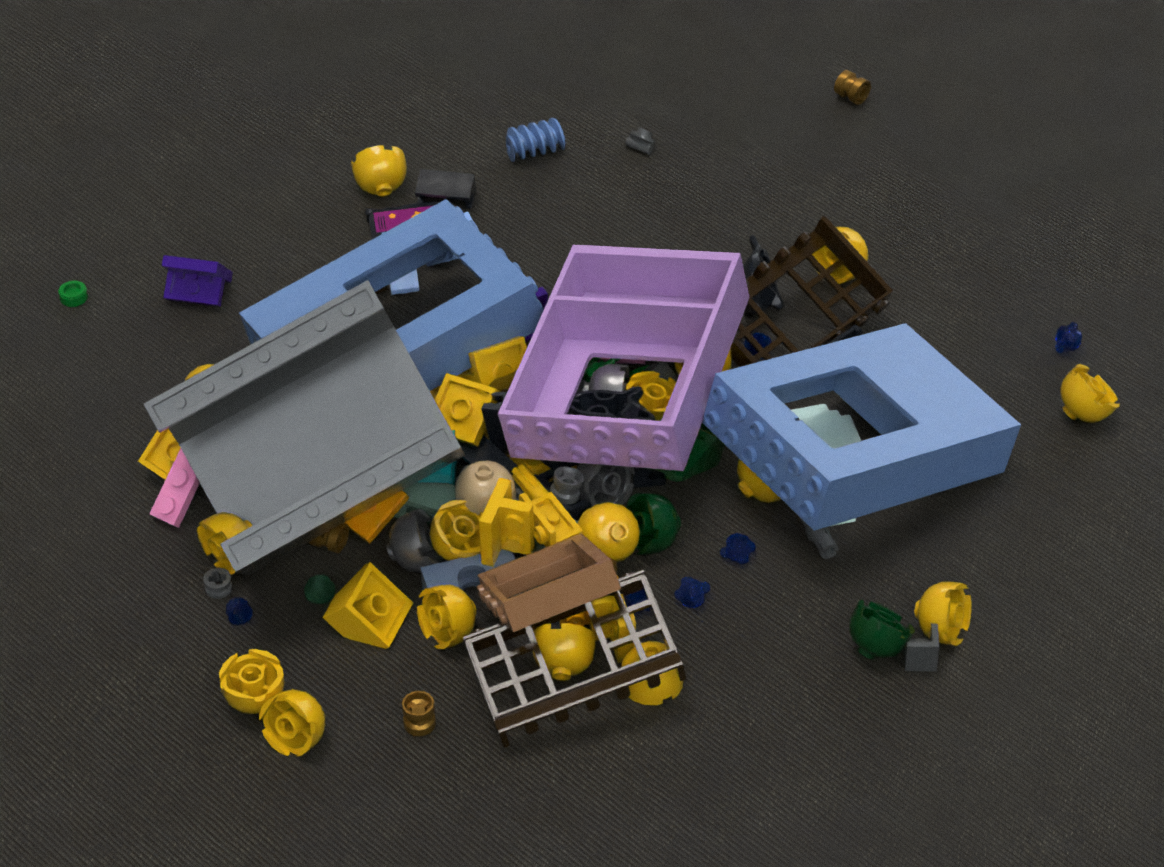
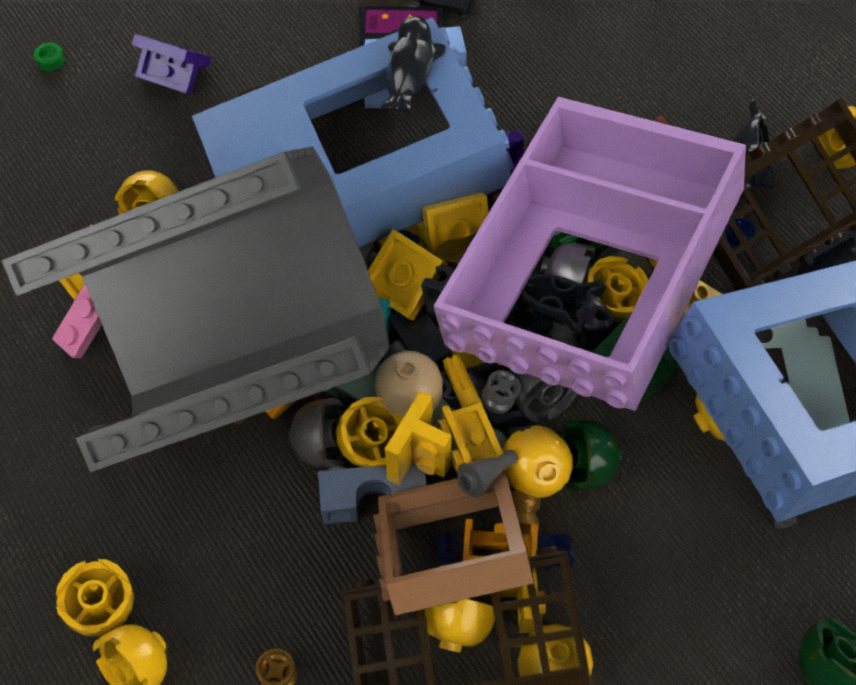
camera: 10 degrees right, 15 degrees up
(215, 531) = (118, 392): yellow cylinder -> none
(243, 611) = (112, 484): clear blue hinge -> none
(319, 589) = (207, 472): clear green plate -> none
(368, 608) = (253, 512): yellow slope -> none
(435, 235) = (410, 63): none -> black animal
(446, 615) = (337, 539): yellow cylinder -> none
(561, 535) = (478, 475): none -> dark grey cone
(692, 592) = (623, 561): clear blue plate -> none
(738, 548) = (687, 493): clear blue plate -> none

